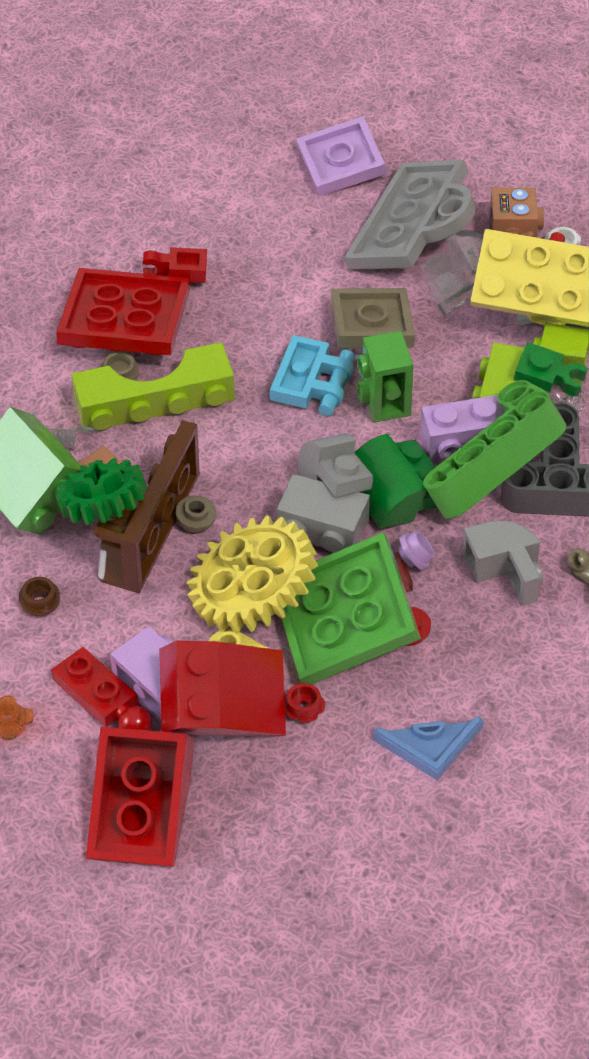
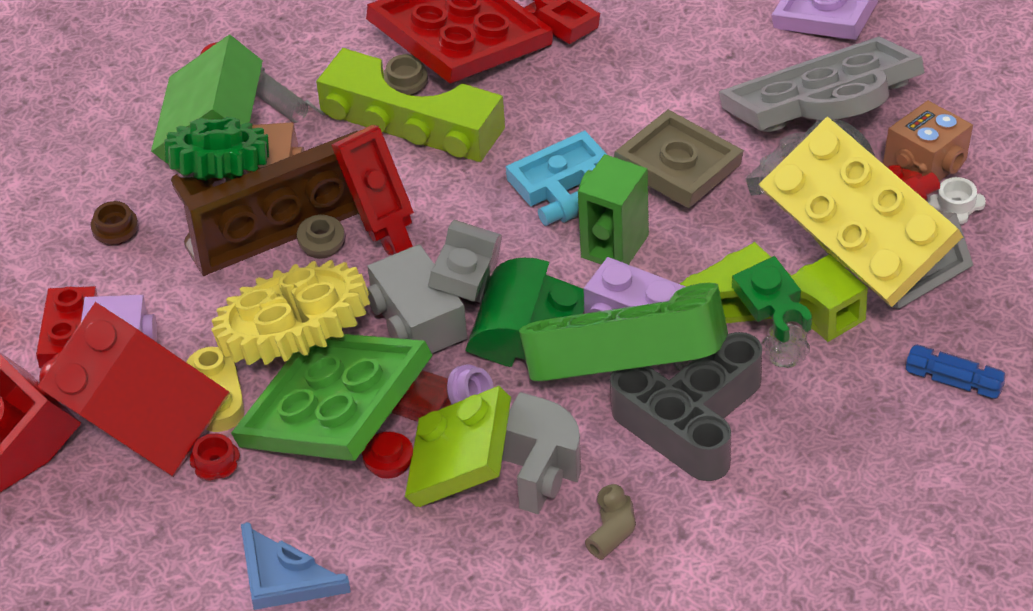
camera: 45 degrees right, 5 degrees down
(227, 453) = (376, 187): none -> red hinge
(459, 589) = (458, 447): none -> lime plate

